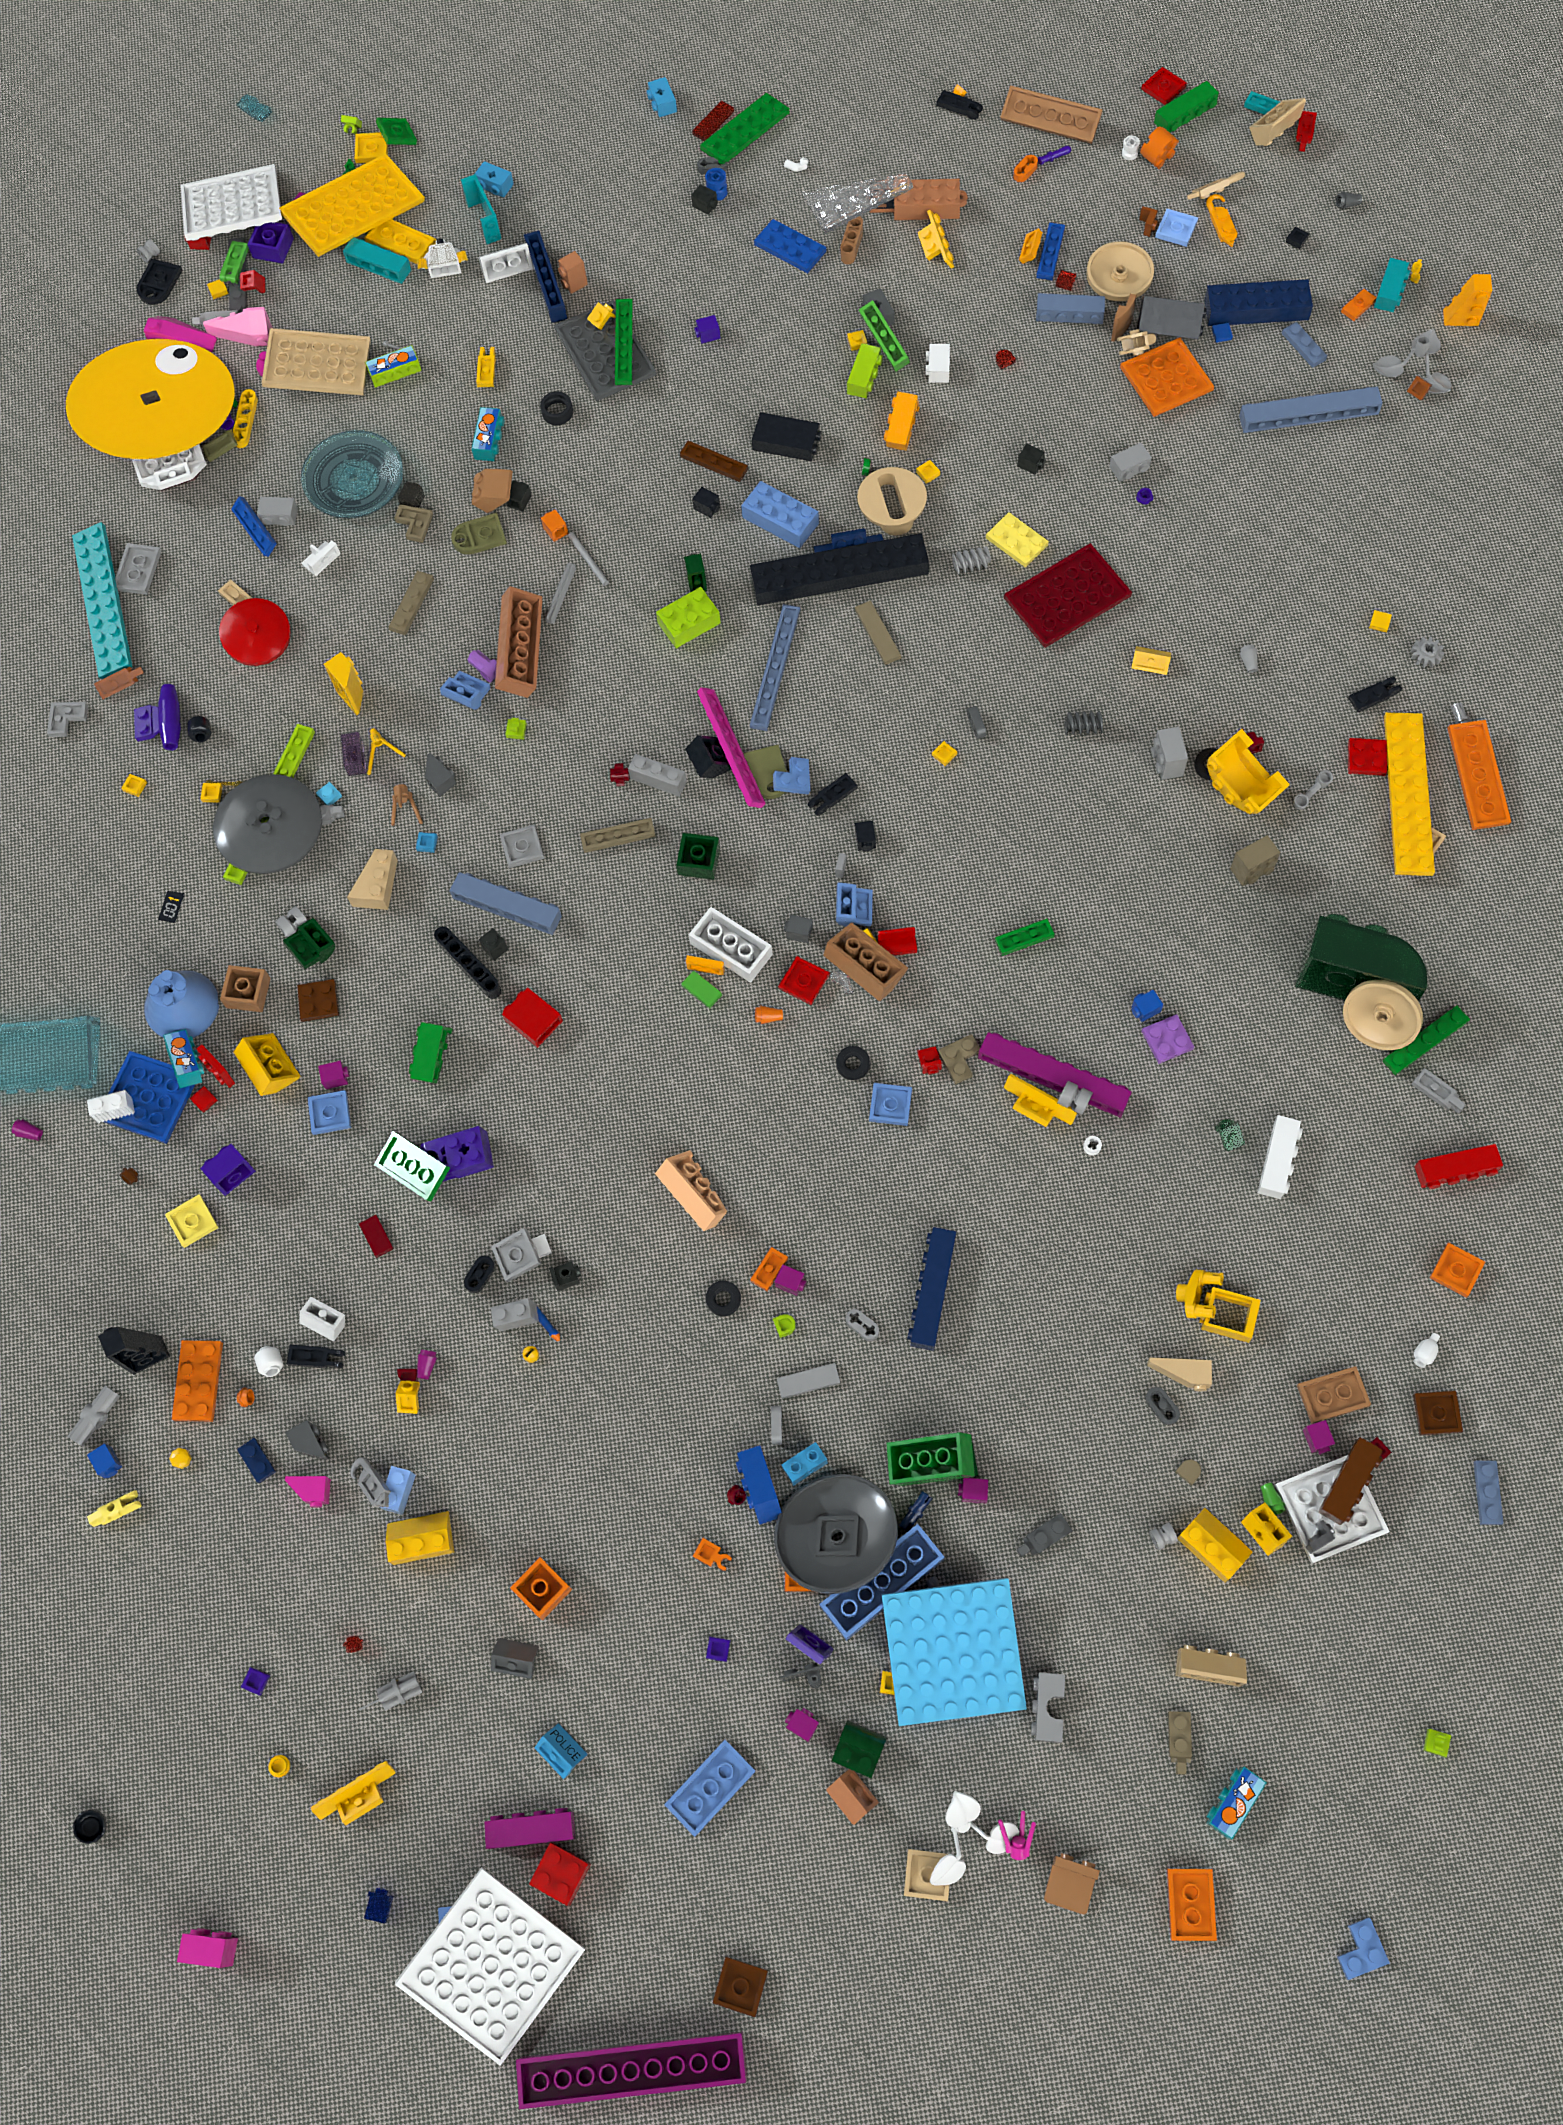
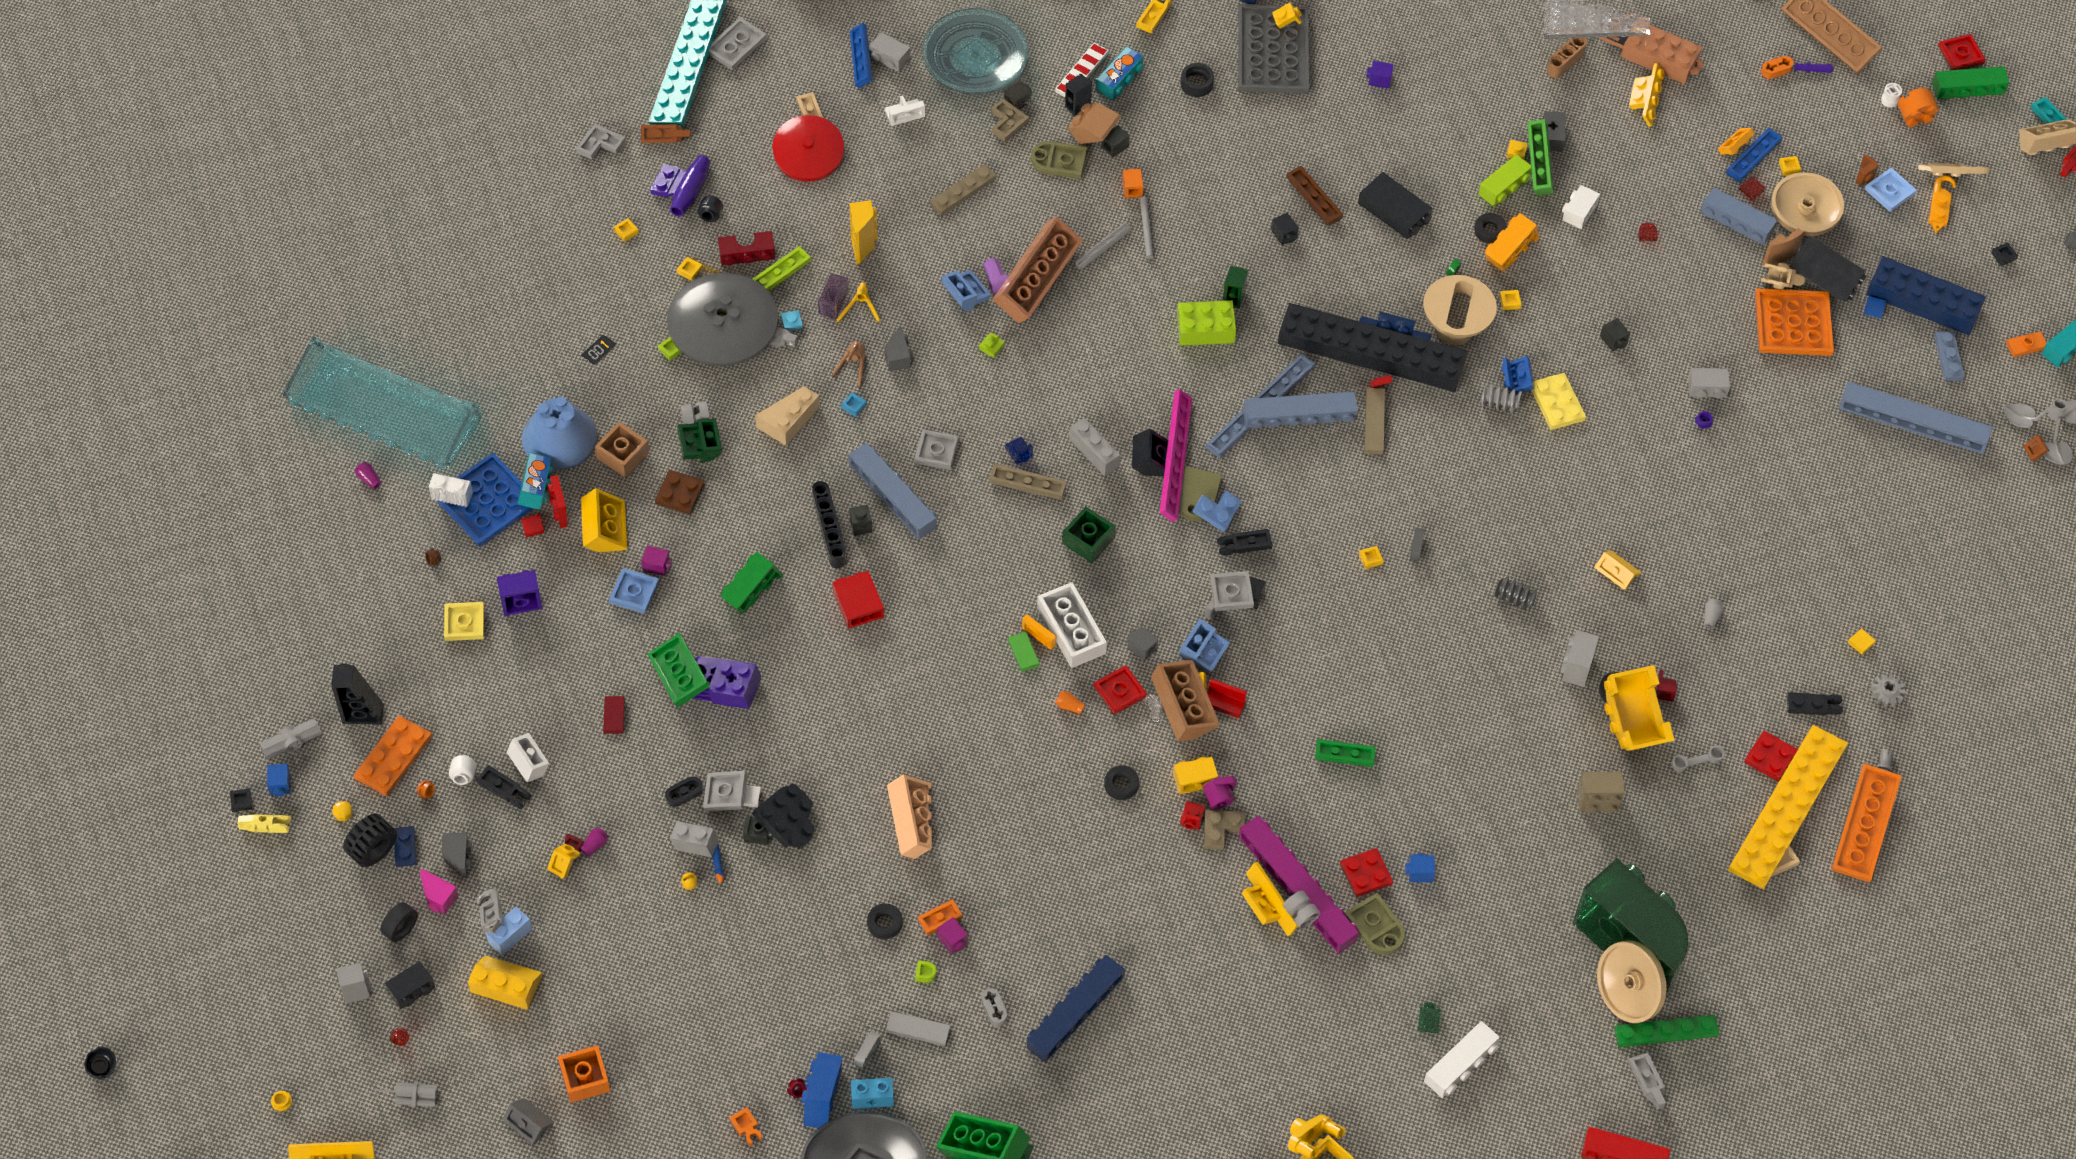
camera: 20 degrees right, 10 degrees down
(80, 1499) = (241, 800): none -> black plate
(222, 1476) = (370, 840): none -> black tyre
(242, 759) = (733, 253): none -> dark red arch
(255, 1681) = (300, 1023): dark purple tile -> none
(284, 1619) = (354, 982): none -> light grey brick
(292, 1538) = (399, 922): none -> black tyre
(336, 1591) = (410, 985): none -> black brick
(453, 448) = (1085, 66): none -> tile
(463, 469) = (1078, 93): none -> black brick
(583, 1249) = (786, 816): none -> black plate
(594, 810) = (1019, 450): none -> clear blue bracket
(619, 774) = (1060, 430): dark red gear -> none
(624, 342) = (1293, 49): green plate -> none
(780, 514) = (1346, 272): medium blue brick -> none
(790, 246) = (1505, 34): blue plate -> none
(812, 654) = (1300, 409): none -> sand blue brick
(850, 844) = (1231, 591): none -> light grey plate
(862, 597) = (1382, 381): none -> red tile
(874, 408) = (1489, 218): none -> black tyre
(890, 1104) = (1133, 834): medium blue plate -> none
(911, 1023) = (1194, 774): none -> yellow brick
(942, 1028) = (1220, 791): none -> magenta piece
(973, 532) = (1518, 375): none -> blue bracket
(1067, 595) = (1574, 473): dark red plate -> none
(1084, 246) = (1789, 165): none -> yellow tile
(1094, 1139) = (1290, 964): white bush -> none
(1102, 1033) = (1366, 872): none -> red plate
(1139, 1074) = (1377, 924): none -> olive tile
(1167, 1039) = (1423, 907): medium lavender plate -> none

